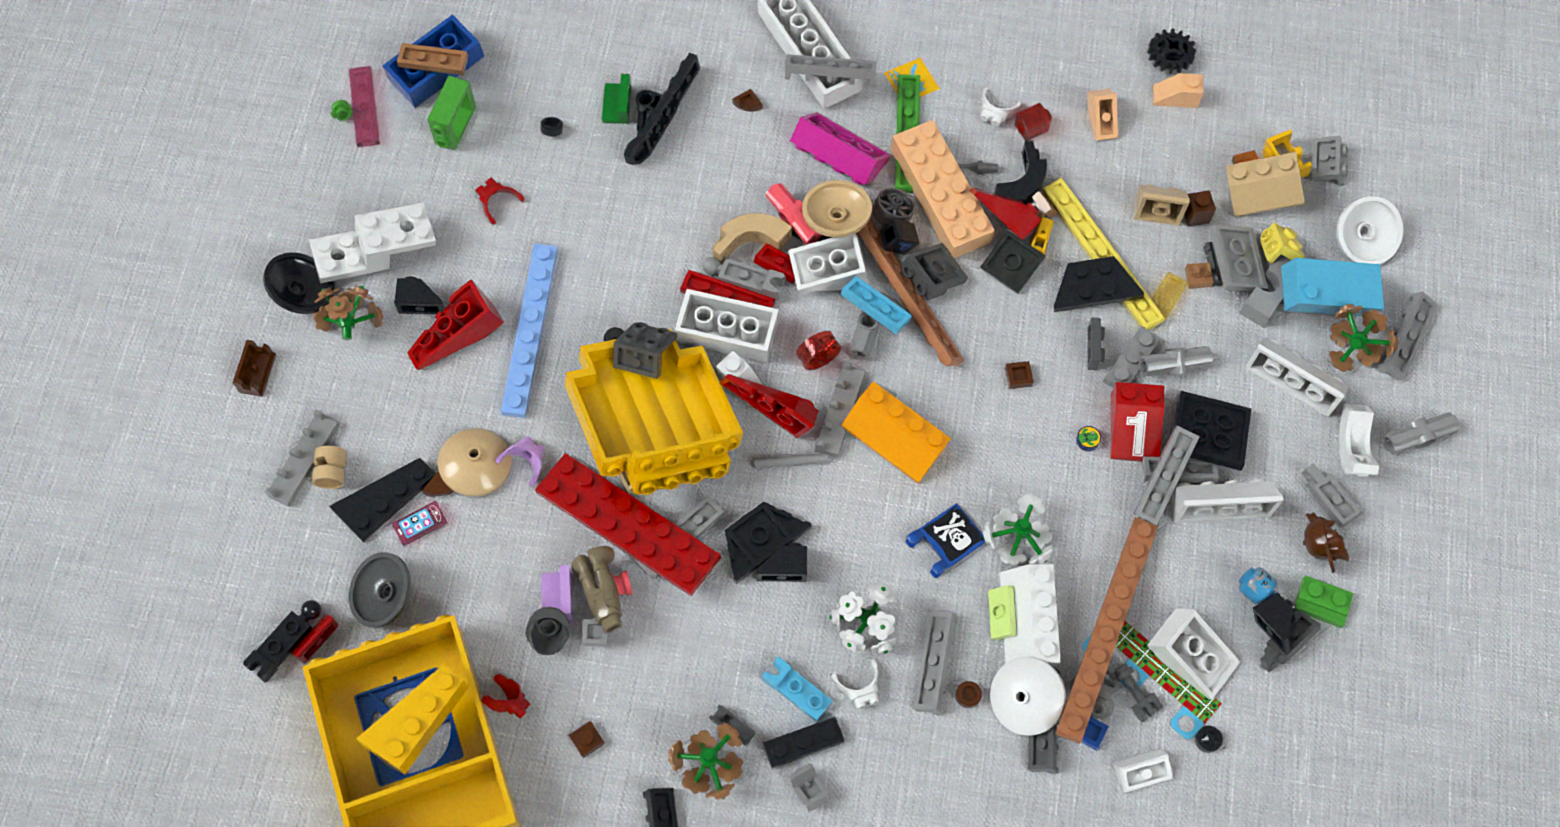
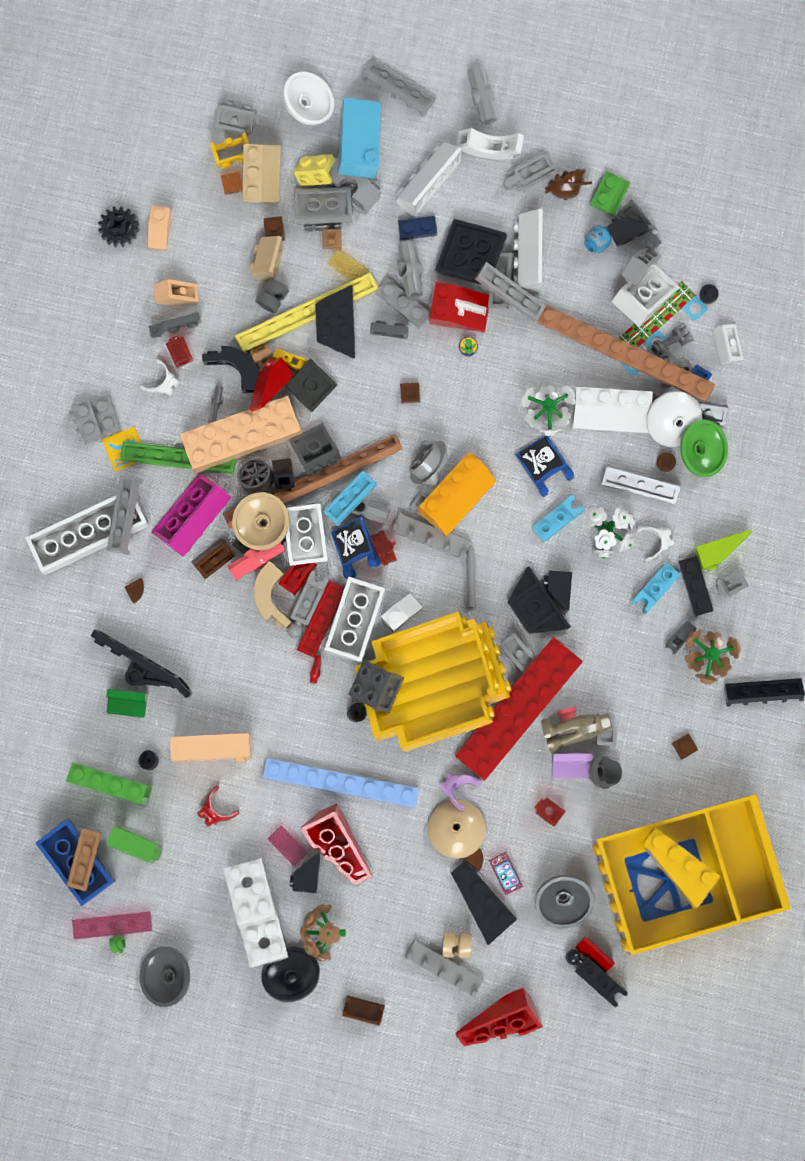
camera: 85 degrees left, 15 degrees up
(240, 532) = (507, 1016): none -> red wedge
(301, 155) = (157, 976): none -> dark grey dish
(454, 277) = (287, 846): none -> clear pink tile
(496, 577) = (557, 812): none -> clear red brick
(515, 701) = (653, 797): red helmet -> none
(519, 83) = (109, 784): none -> bright green window
(564, 182) = (211, 748): none -> light nougat brick
(664, 292) = (315, 670): none -> red piece
(786, 410) = (433, 577): red wedge -> none
(791, 176) = (213, 558): none -> reddish brown slope
(817, 318) = (353, 545): none -> flag
(853, 768) = (715, 552): none -> lime slope
(877, 558) = (557, 519): none -> medium azure plate
(931, 393) = (428, 462): none -> light grey piece
(941, 46) = (95, 419): none -> light grey plate
(995, 753) = (710, 445): none -> bright green dish
(1002, 612) = (607, 429): yellowish green plate -> none
(1065, 115) = (175, 324): none -> dark grey hinge
(1110, 205) = (271, 296): none -> dark grey wheel
(1231, 370) = (417, 228): none -> dark blue plate
(1232, 636) = (640, 265): none -> light grey slope
(1368, 349) = (410, 125): medium nougat plant -> none

